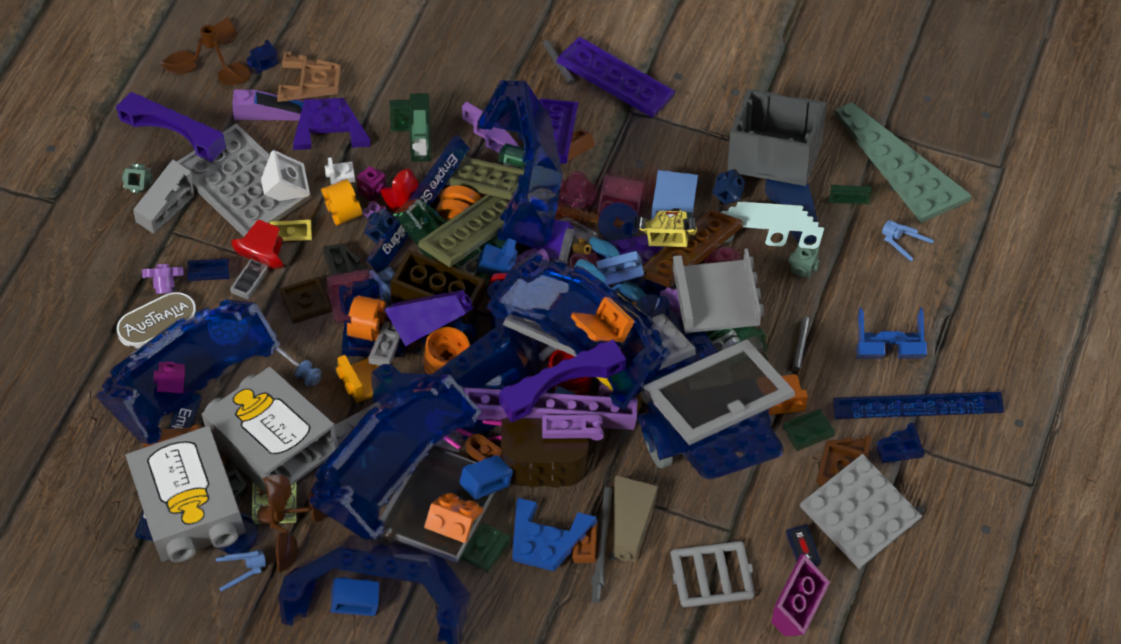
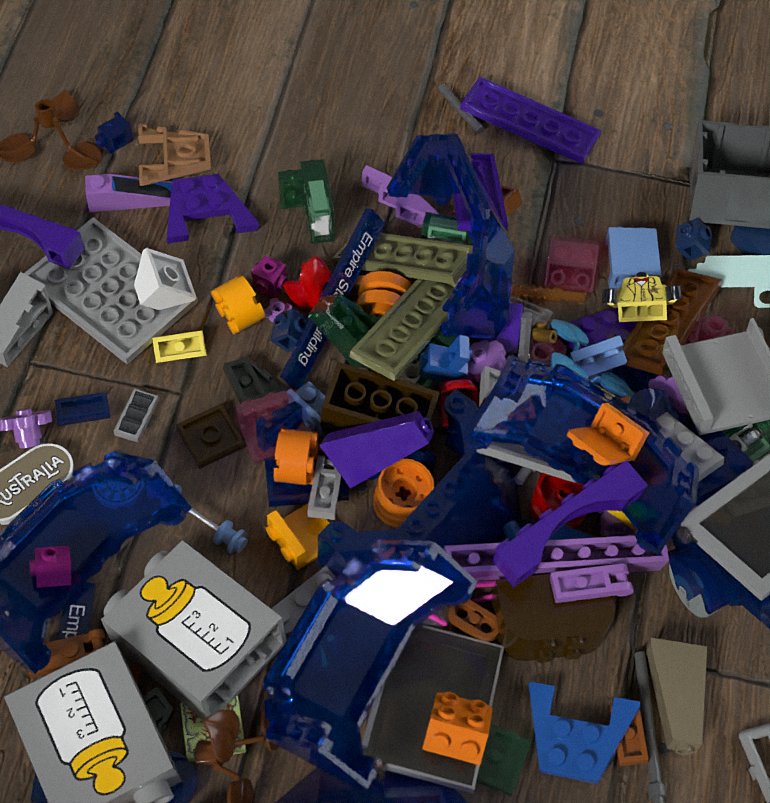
camera: 10 degrees left, 5 degrees up
(261, 244) = (145, 370): red piece -> none
(339, 171) = (227, 265): white bracket -> none
(486, 477) = (487, 661): blue brick -> none
(577, 190) = (525, 261): clear pink plant -> none
(609, 215) = (563, 290): clear blue plate -> none

